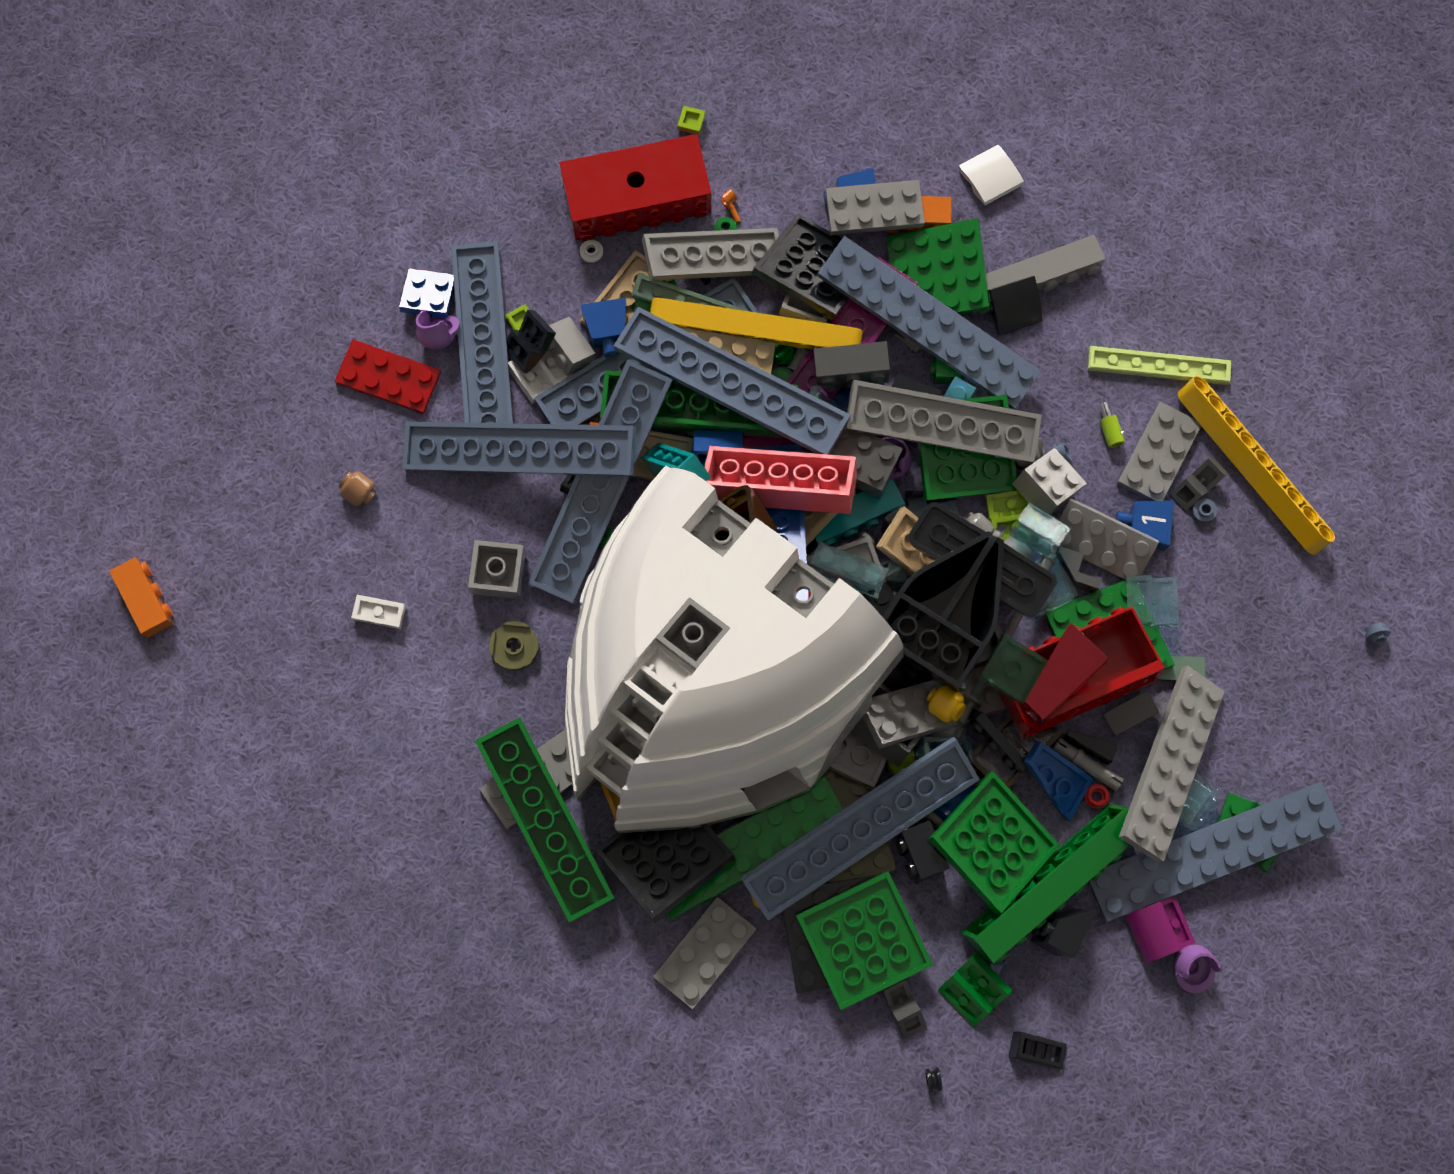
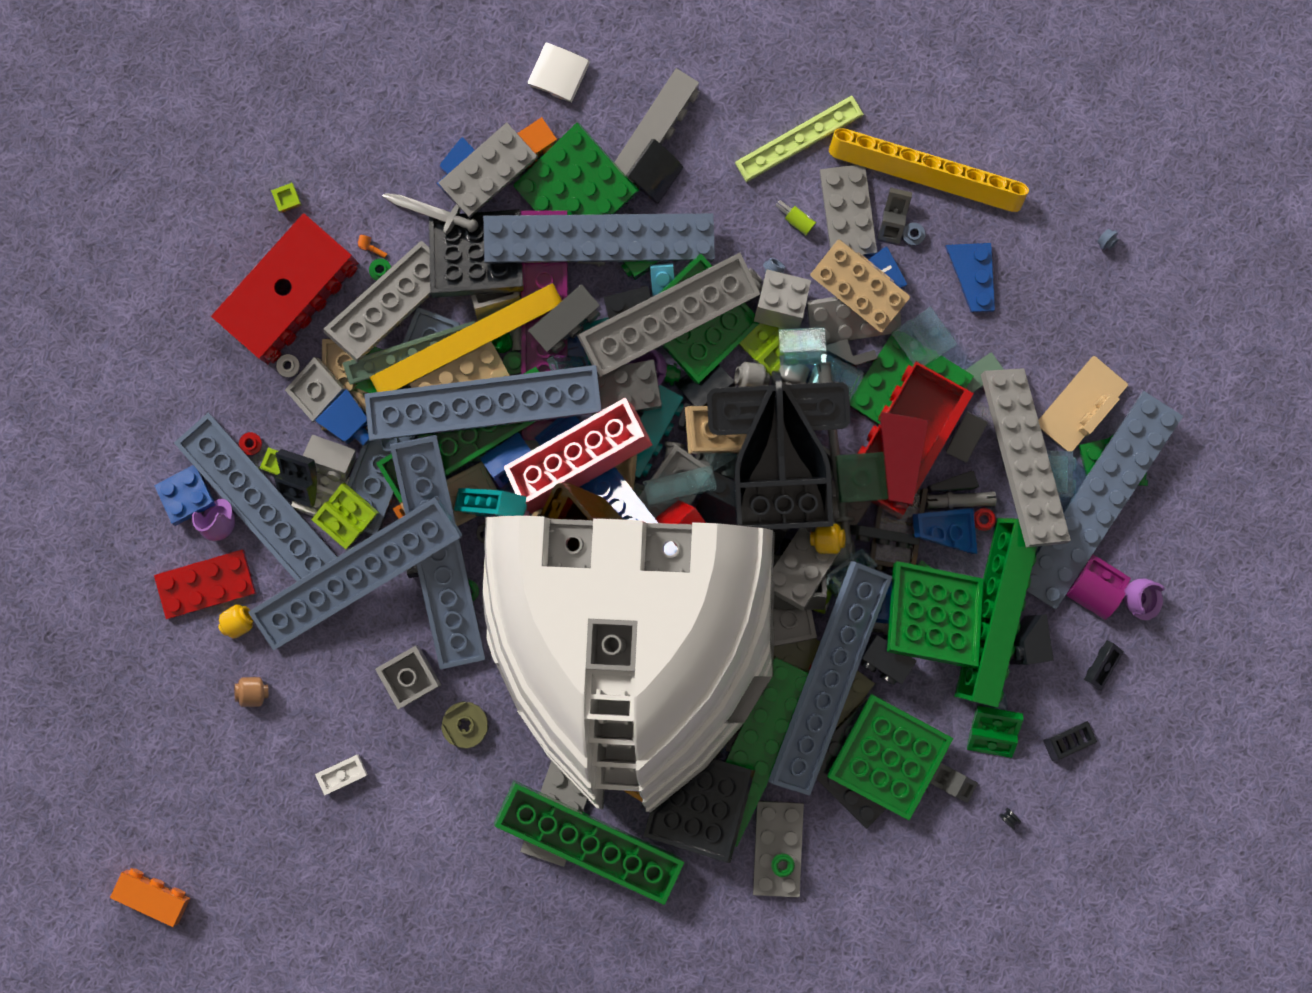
camera: 35 degrees left, 10 degrees up
(389, 423) = (235, 621): none -> yellow head
(513, 297) = (257, 443): none -> red plate
(546, 399) = (345, 515): none -> lime slope
(599, 281) = (315, 389): none -> light grey plate
(698, 959) = (782, 872): none -> green plate
(814, 225) = (451, 218): none -> light grey sword
(909, 480) = (672, 374): none -> green plate
(1116, 1003) = (1103, 665): none -> black plate
(1127, 513) = (860, 285): none -> tan bracket
(1235, 582) = (975, 274): none -> blue wing
(1255, 758) = (1082, 404): none -> tan bracket

